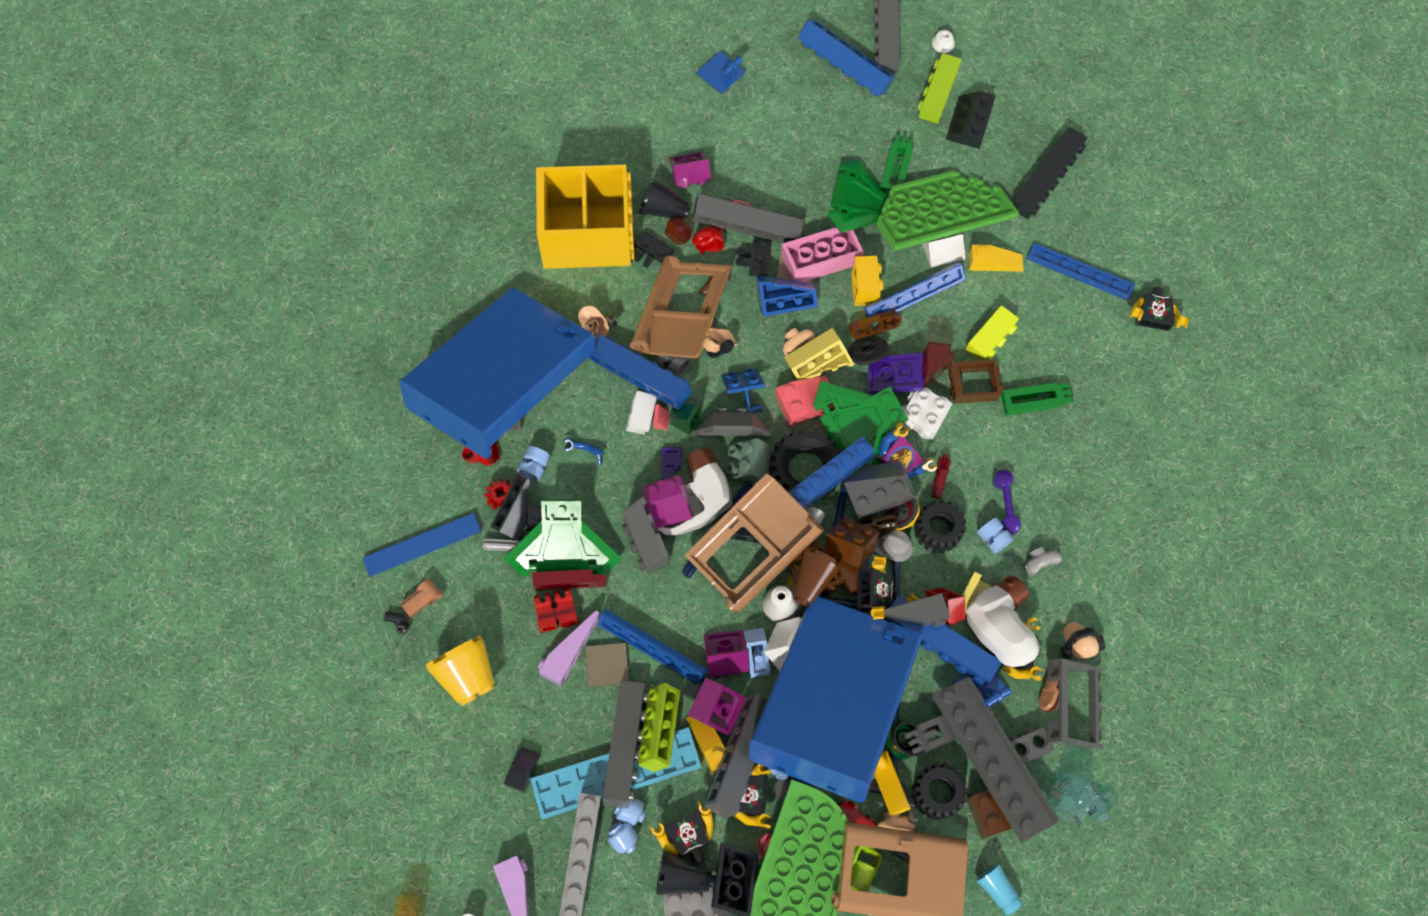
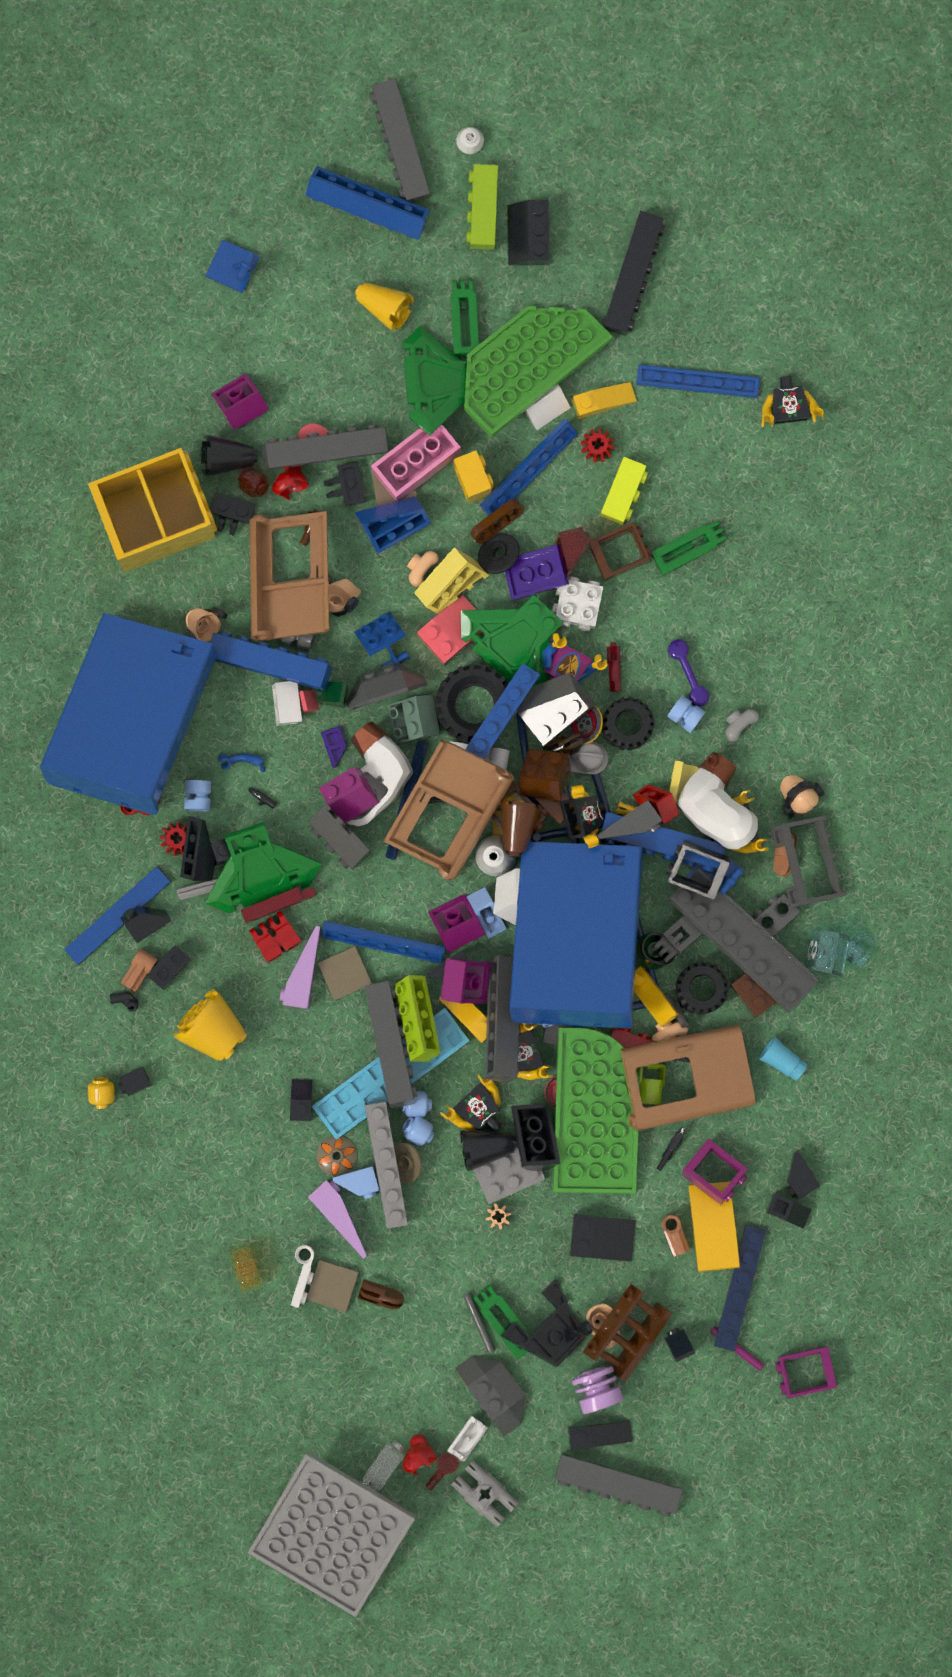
camera: 20 degrees left, 15 degrees up
(340, 698) = (101, 1092): none -> yellow head
(375, 698) = (134, 1082): none -> black brick
(442, 555) = (144, 921): none -> black slope
(448, 604) = (169, 967): none -> black brick
(541, 846) = (328, 1163): none -> dish
(548, 869) = (359, 1182): none -> light blue slope
(590, 486) = (264, 799): none -> black helmet
(601, 865) = (408, 1162): none -> dark tan dish
(837, 133) = (385, 304): none -> yellow cone
(984, 298) = (603, 450): none -> red gear
(986, 688) = (708, 891): none -> window

